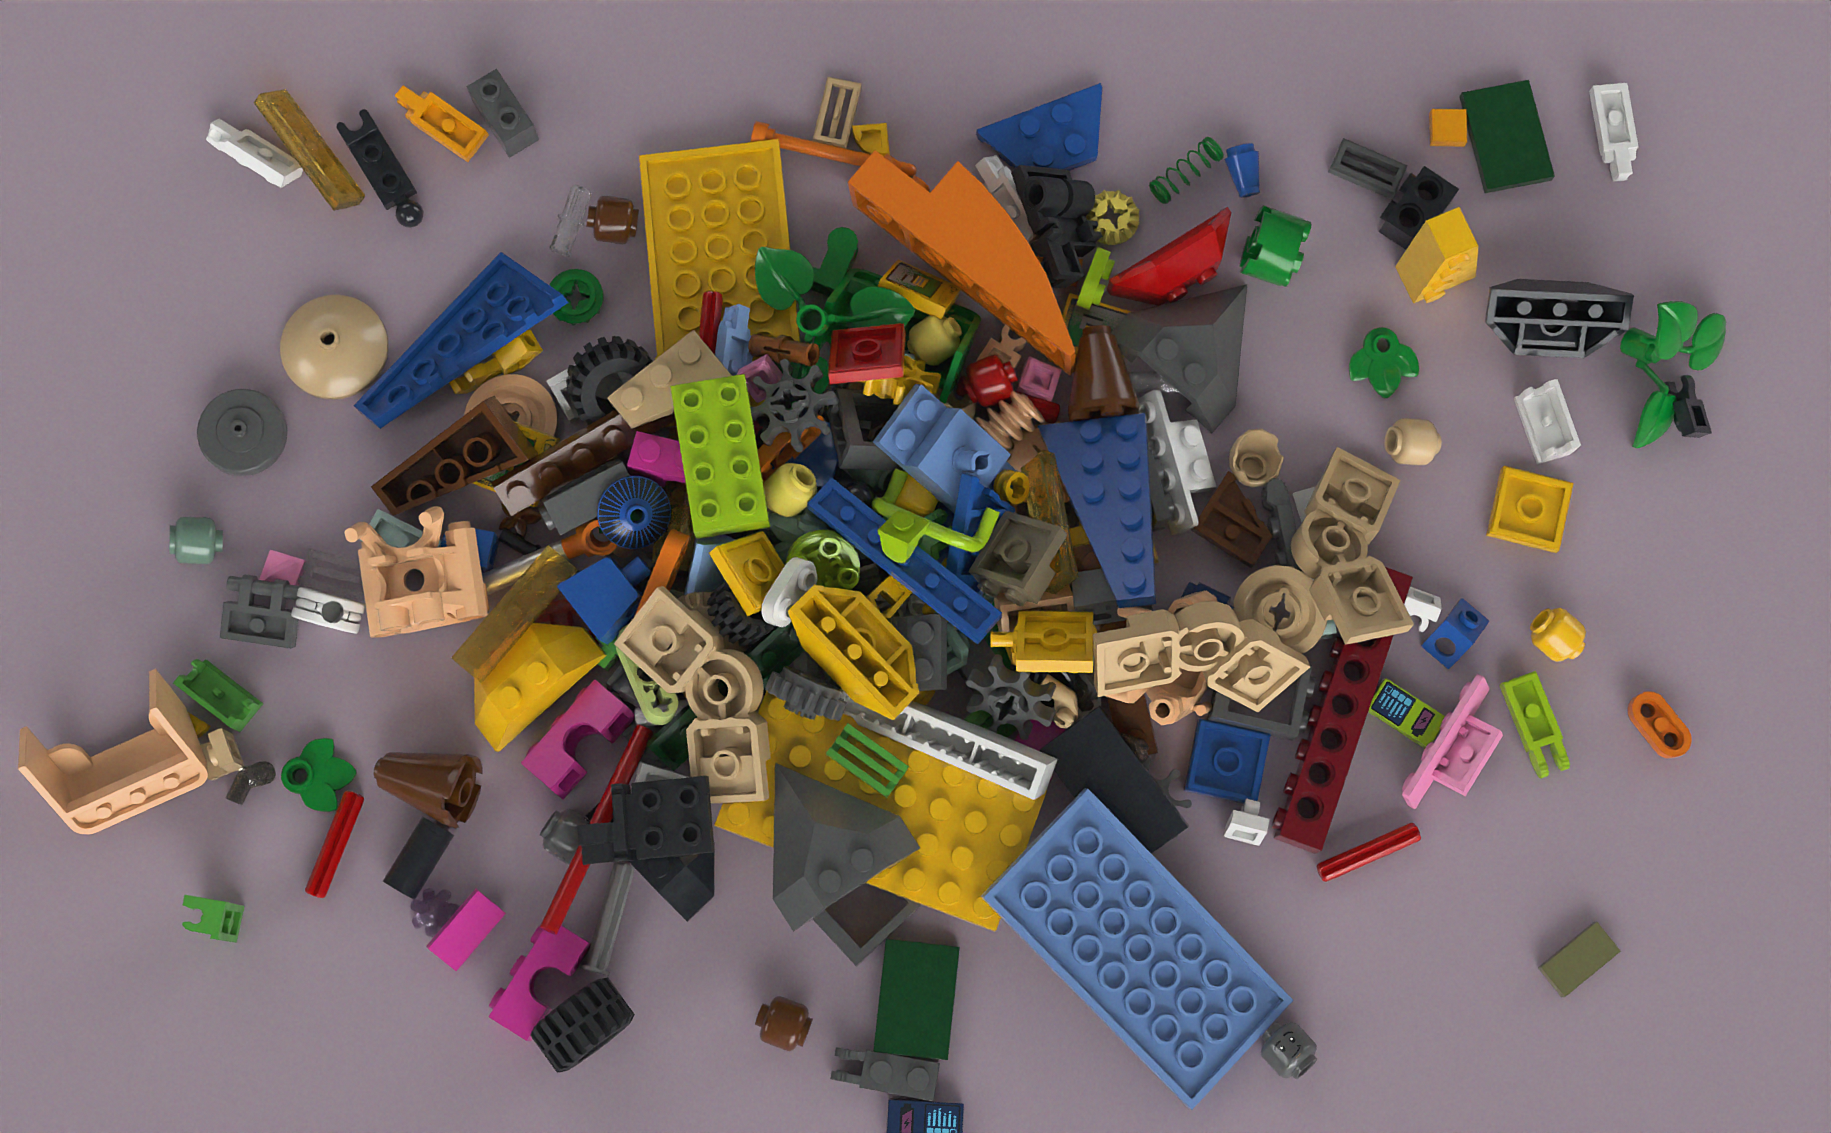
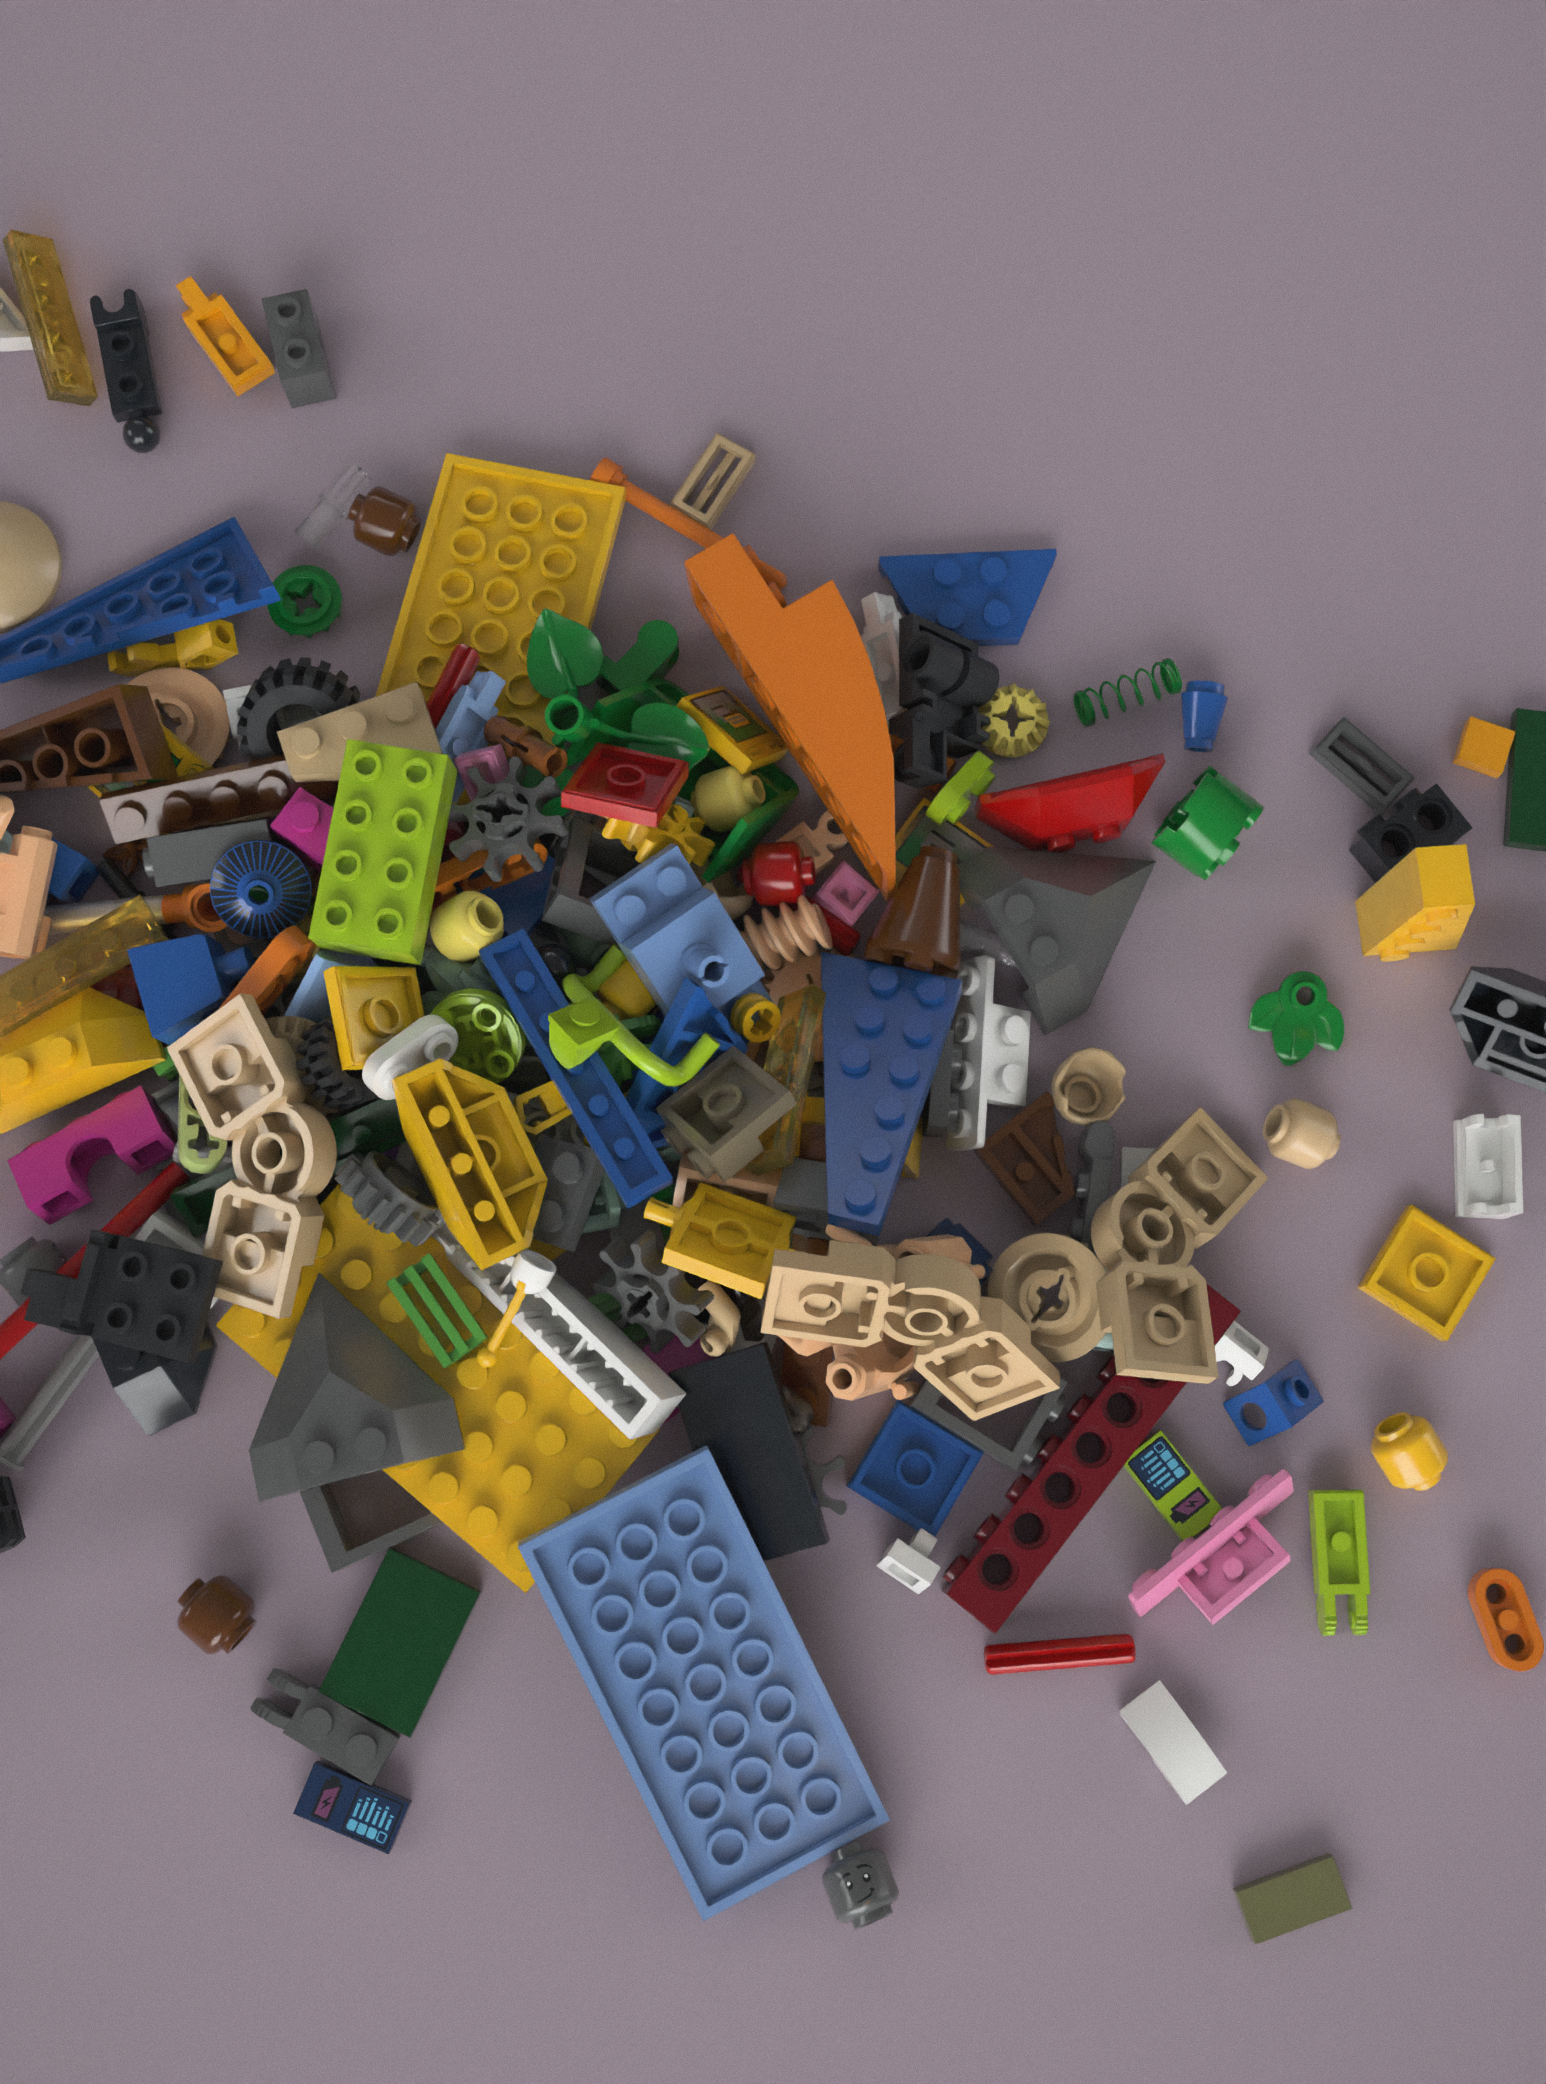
camera: 20 degrees right, 0 degrees up
(872, 137) = (747, 525): yellow tile -> none
(925, 713) = (529, 1275): none -> hinge
(1465, 883) = (1173, 1742): none -> white slope

